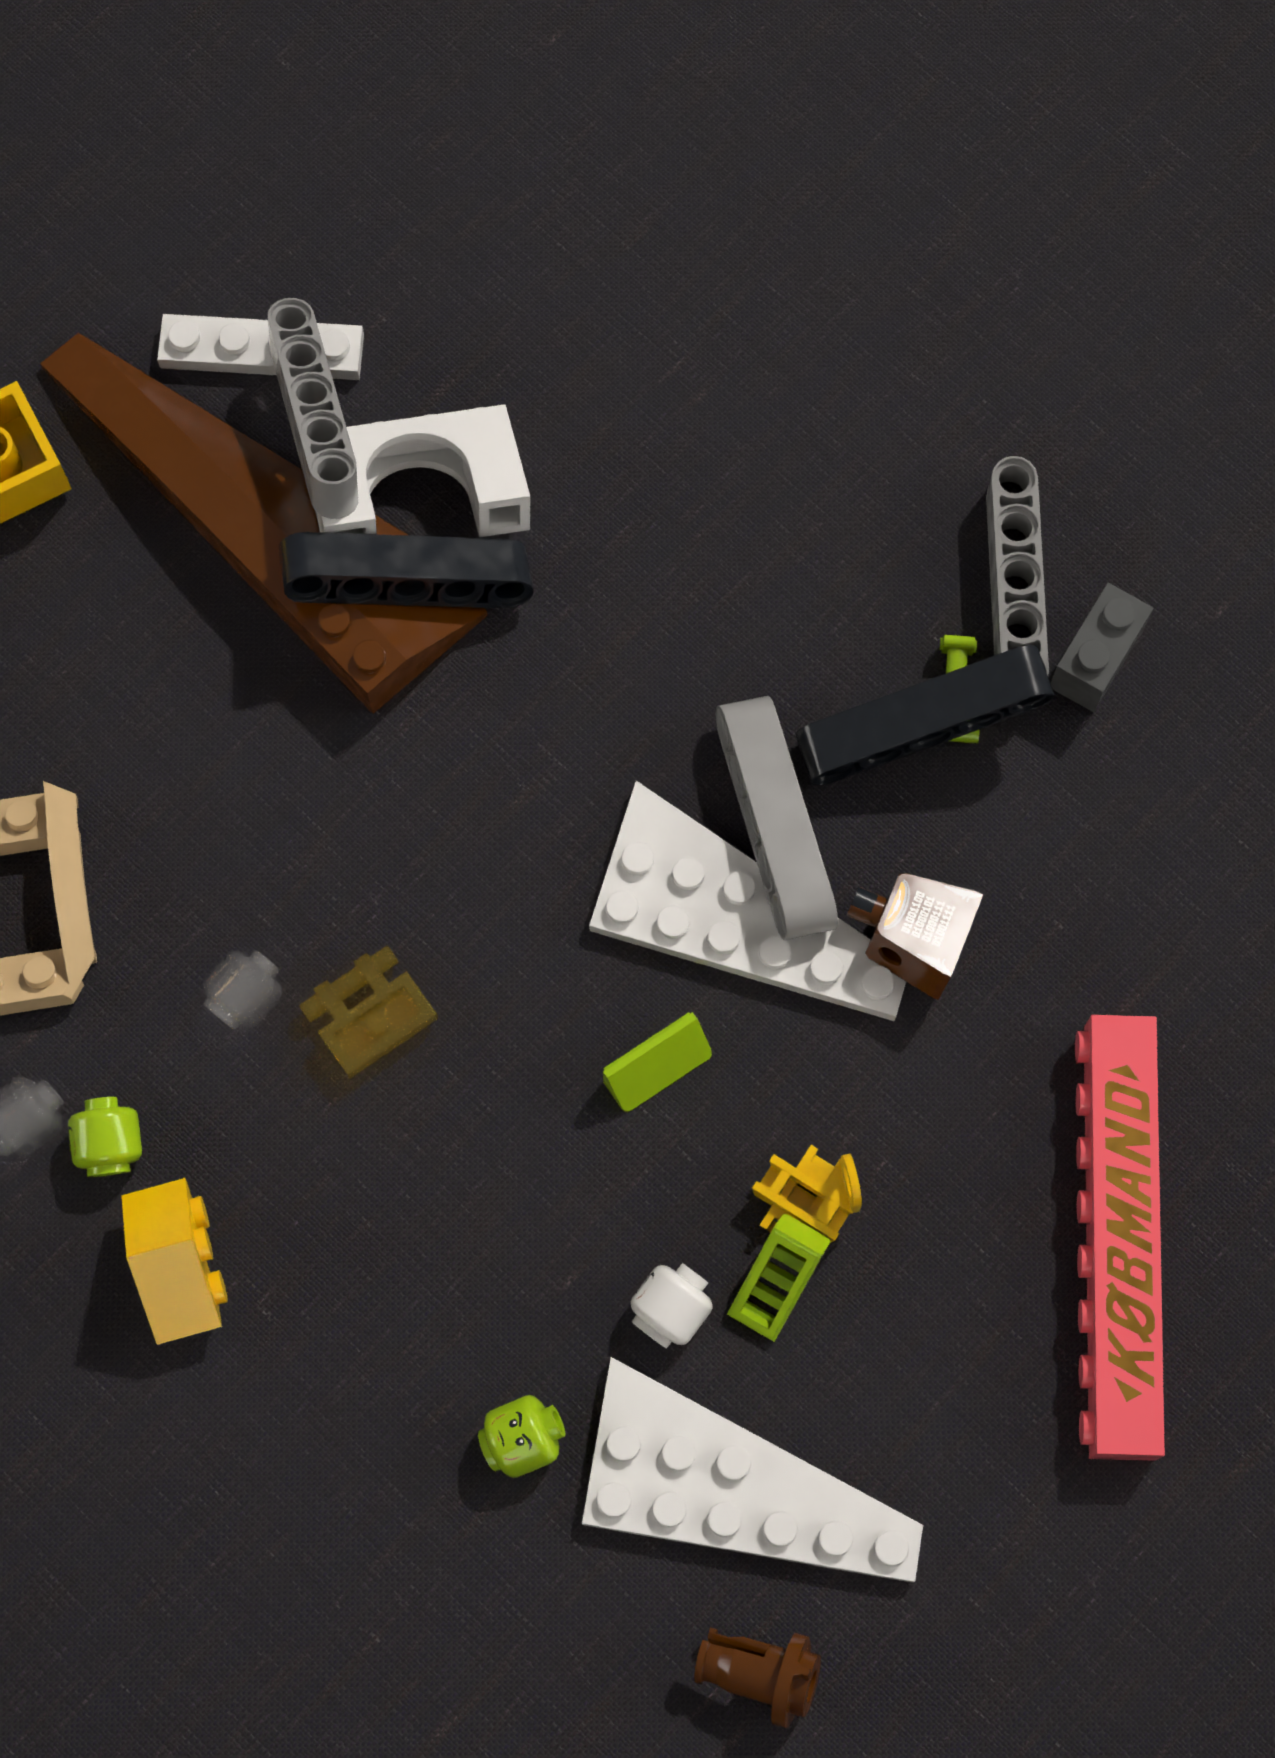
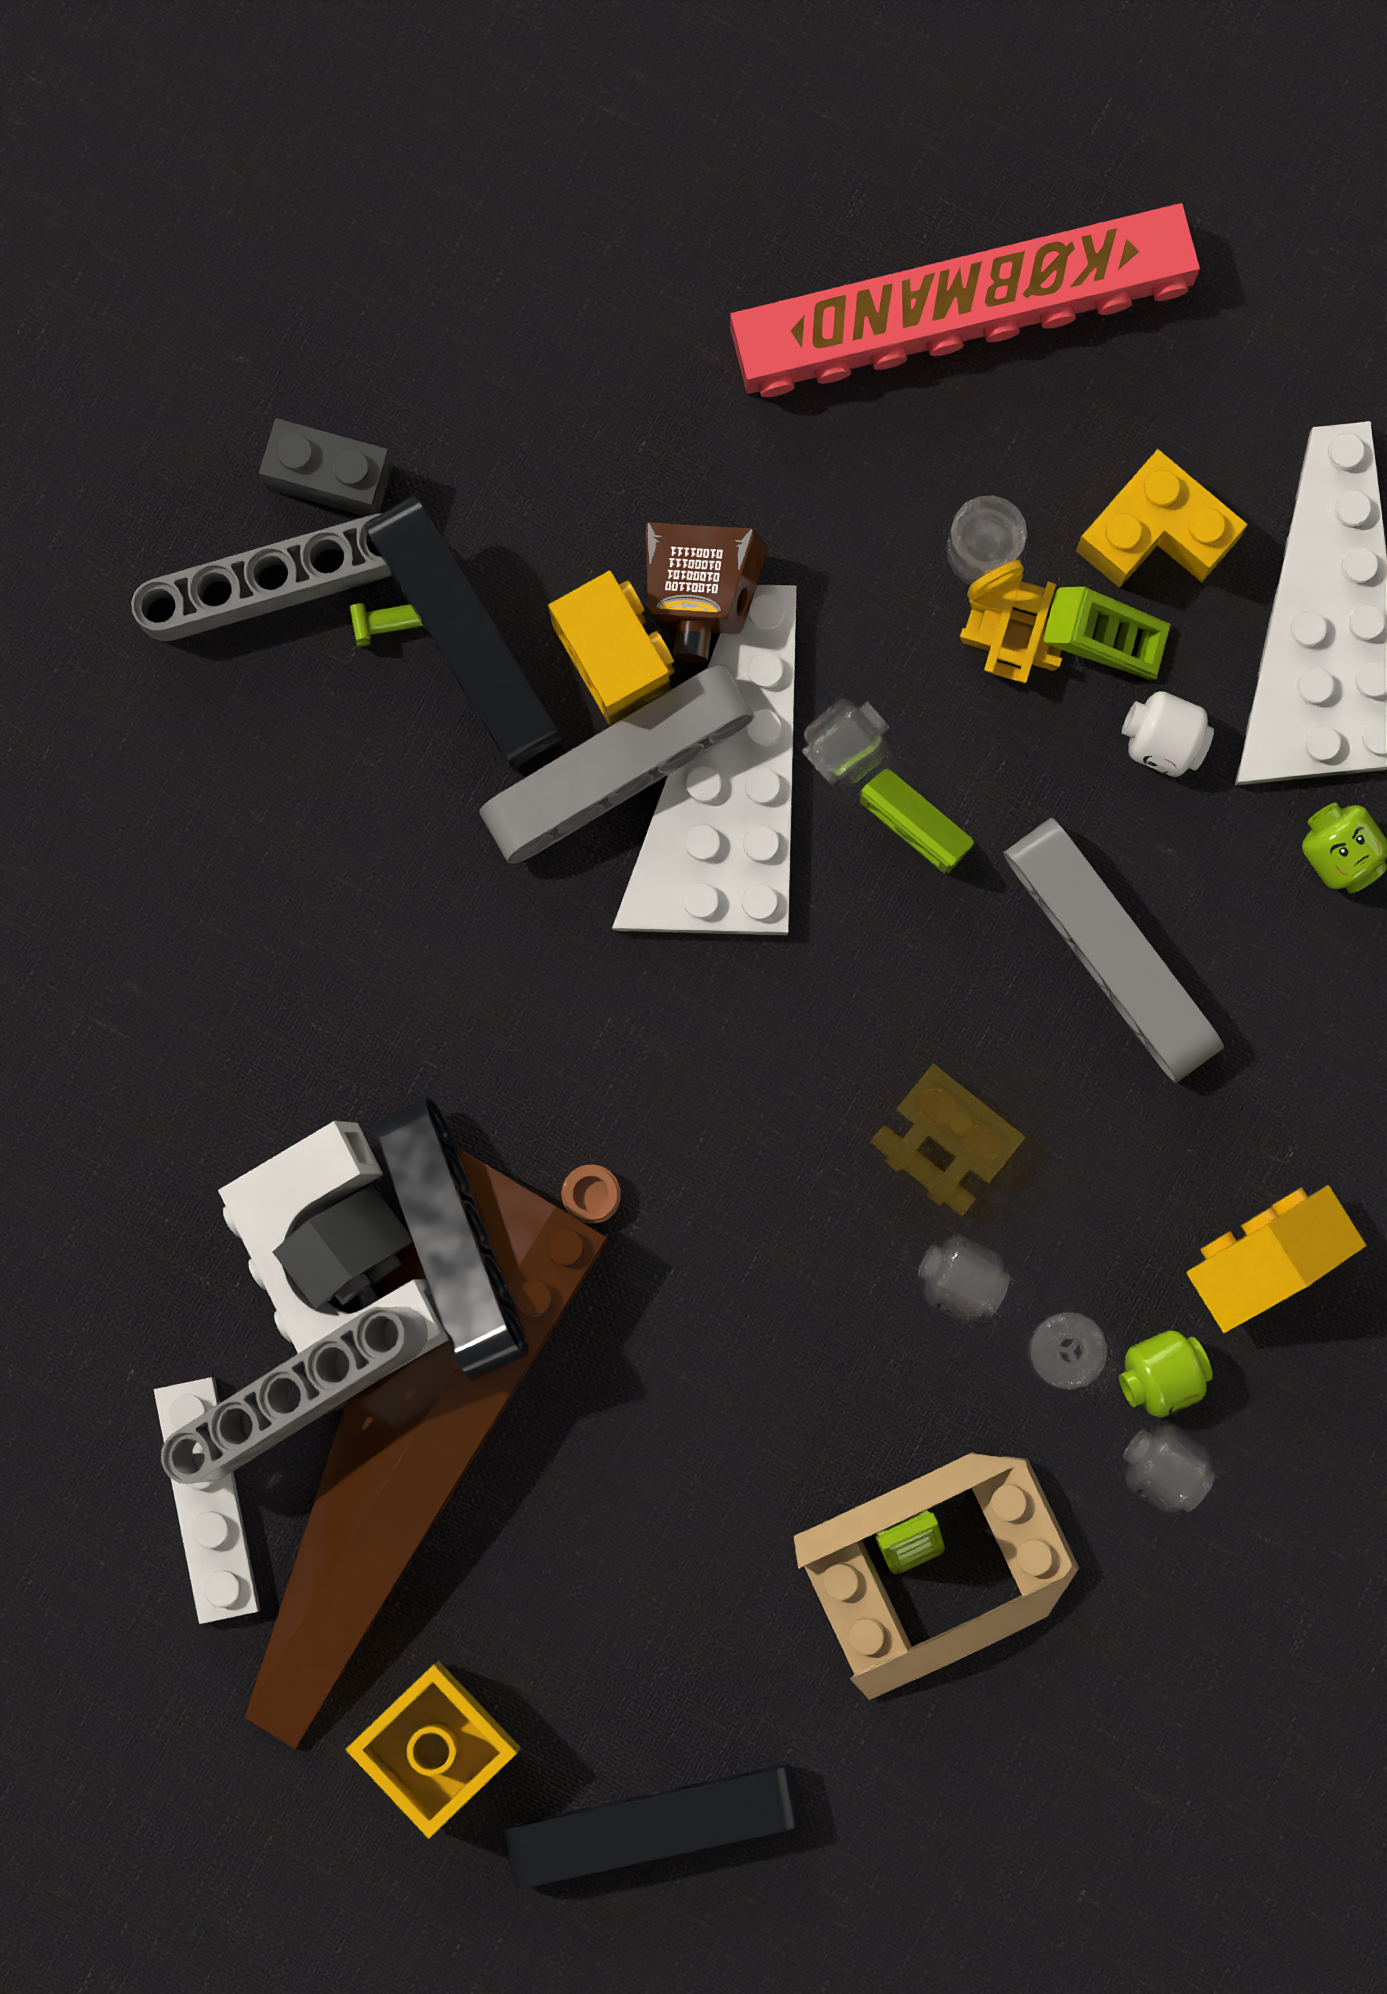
camera: 100 degrees left, 10 degrees up
(34, 877) = (910, 1542): none -> lime slope
(158, 1071) = (1045, 1350): none -> clear head
(414, 707) = (591, 1194): none -> nougat tile
(425, 483) = (345, 1248): none -> dark grey brick
(490, 1200) = (1113, 950): none -> light grey beam
(742, 1019) = (846, 741): none -> clear head
(877, 833) = (610, 648): none -> yellow brick
(880, 1355) = (1164, 510): none -> yellow brick
(892, 1188) = (985, 536): none -> clear wheel

